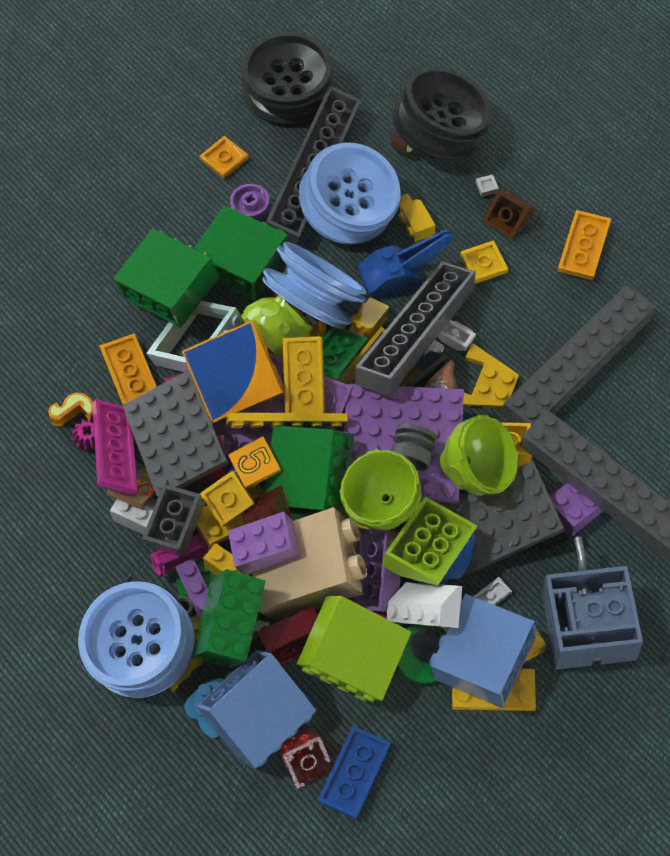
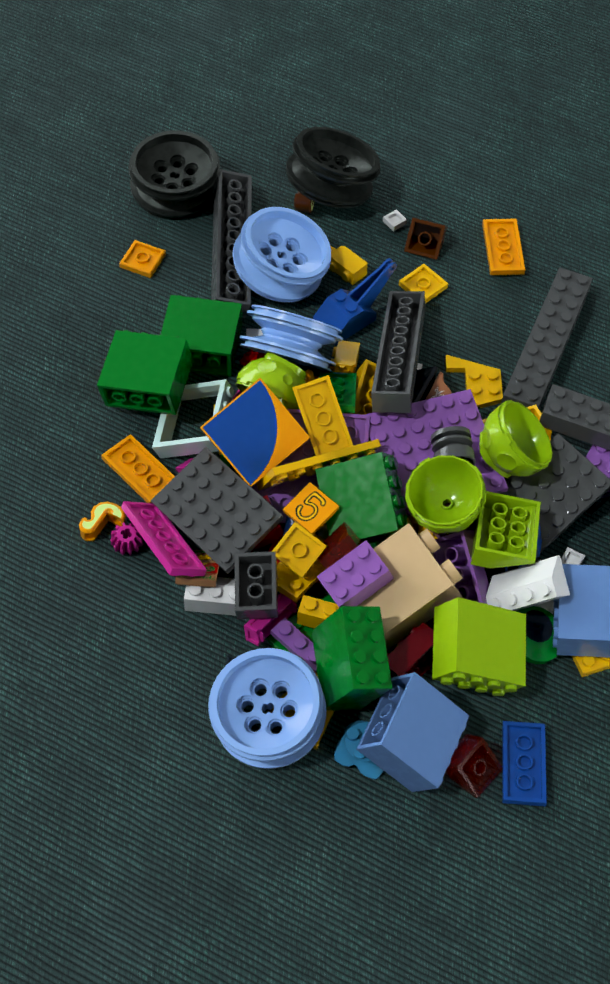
camera: 25 degrees left, 5 degrees down
(252, 201) = (190, 285): medium lavender wheel -> none
(457, 335) = (432, 353): white slope -> none

